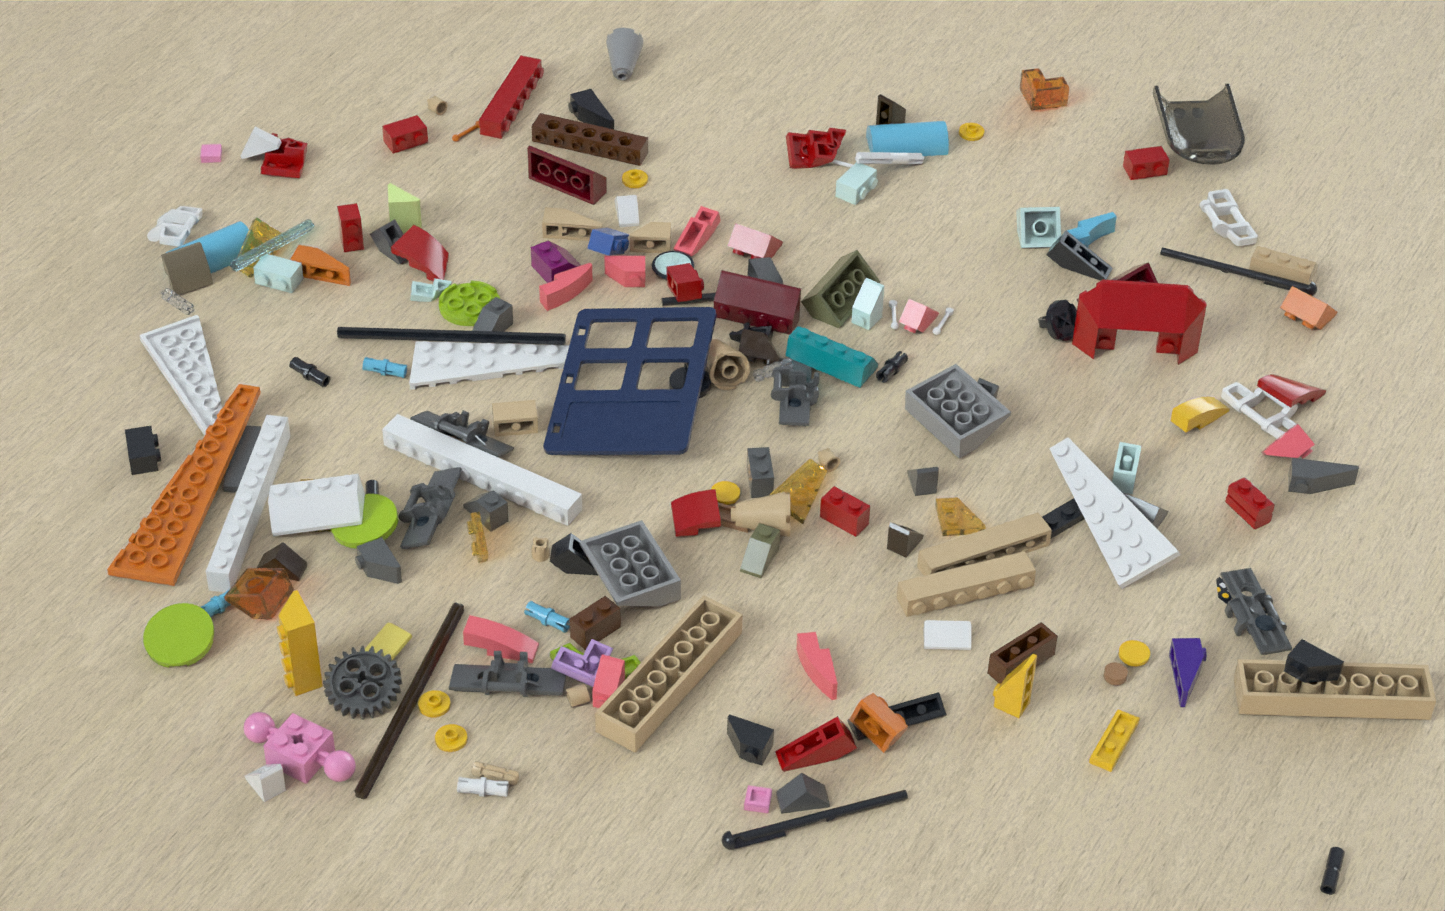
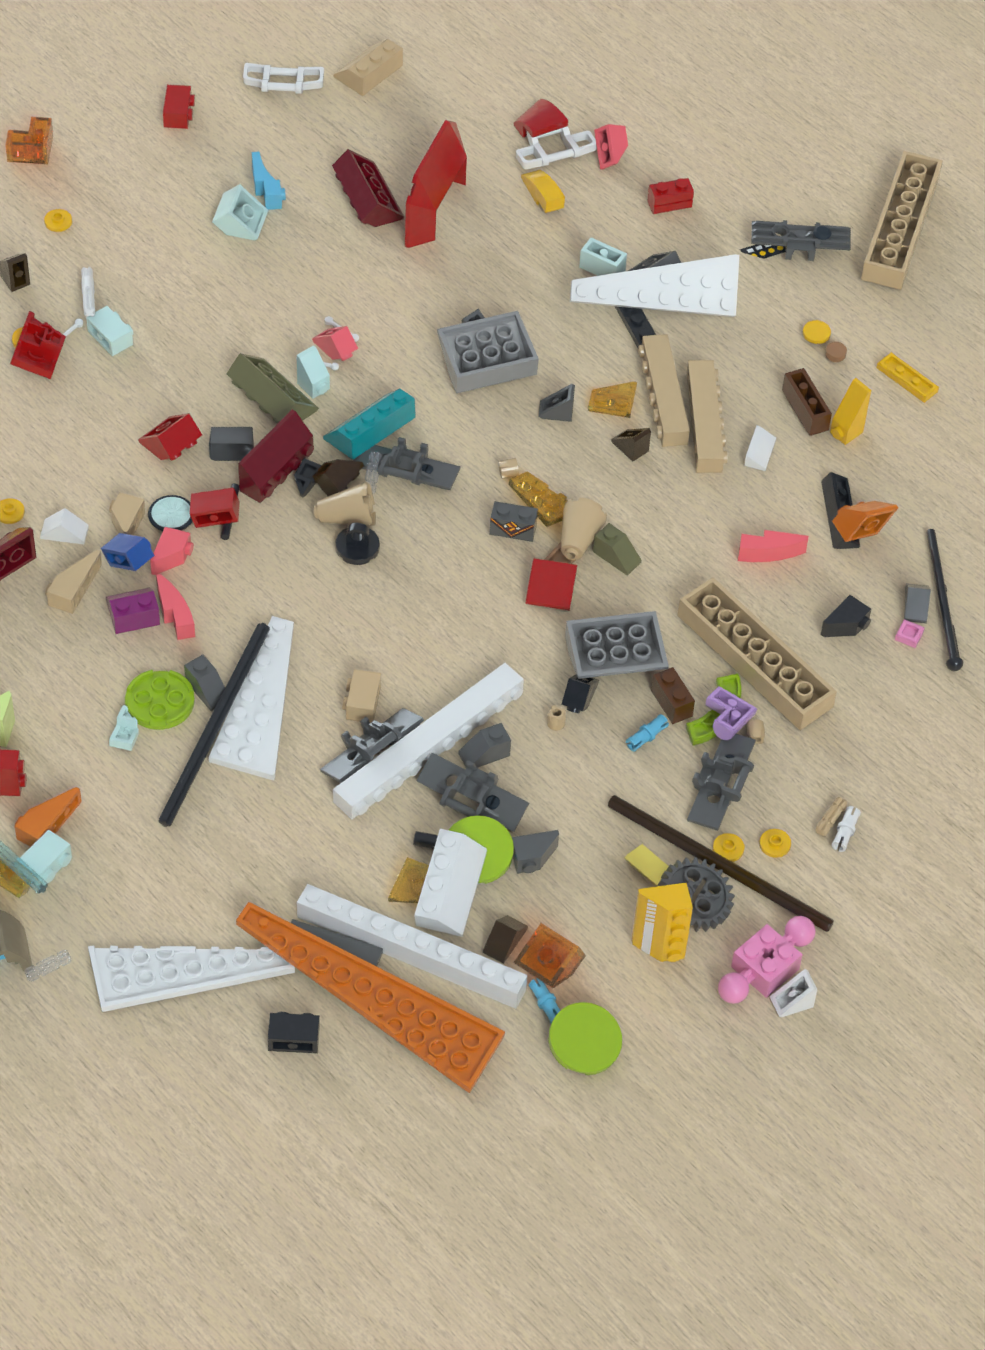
camera: 75 degrees left, 10 degrees up
(309, 372) = (221, 860): black pin -> none
(384, 367) = (239, 792): medium azure pin -> none
(386, 237) = (35, 743): dark grey slope -> none
(422, 252) = (67, 719): red slope -> none
(478, 543) = (530, 760): clear yellow wing -> none
(498, 637) = (670, 776): coral slope -> none
(608, 678) = (761, 696): coral slope -> none
(630, 418) = (403, 609): dark blue door -> none
(698, 231) = (131, 477): coral slope -> none
(726, 492) = (523, 556): yellow piece -> none
(817, 746) = (868, 573): red slope -> none
(845, 511) = (587, 473): red brick -> none
(891, 366) = (396, 382): black pin -> none
(917, 137) = (55, 270): medium azure brick -> none
(1059, 320) = (387, 243): black tile -> none
(1075, 256) = (298, 201): black slope -> none
(1186, 663) = (846, 302): dark purple slope -> none
(1202, 129) = (153, 43): clear smoke windscreen -> none
(1226, 268) = (408, 60): black bar -> none
(1307, 308) = (436, 70): orange slope -> none
(1312, 664) = (889, 217): black slope -> none
(1319, 476) = (648, 147): dark grey slope -> none

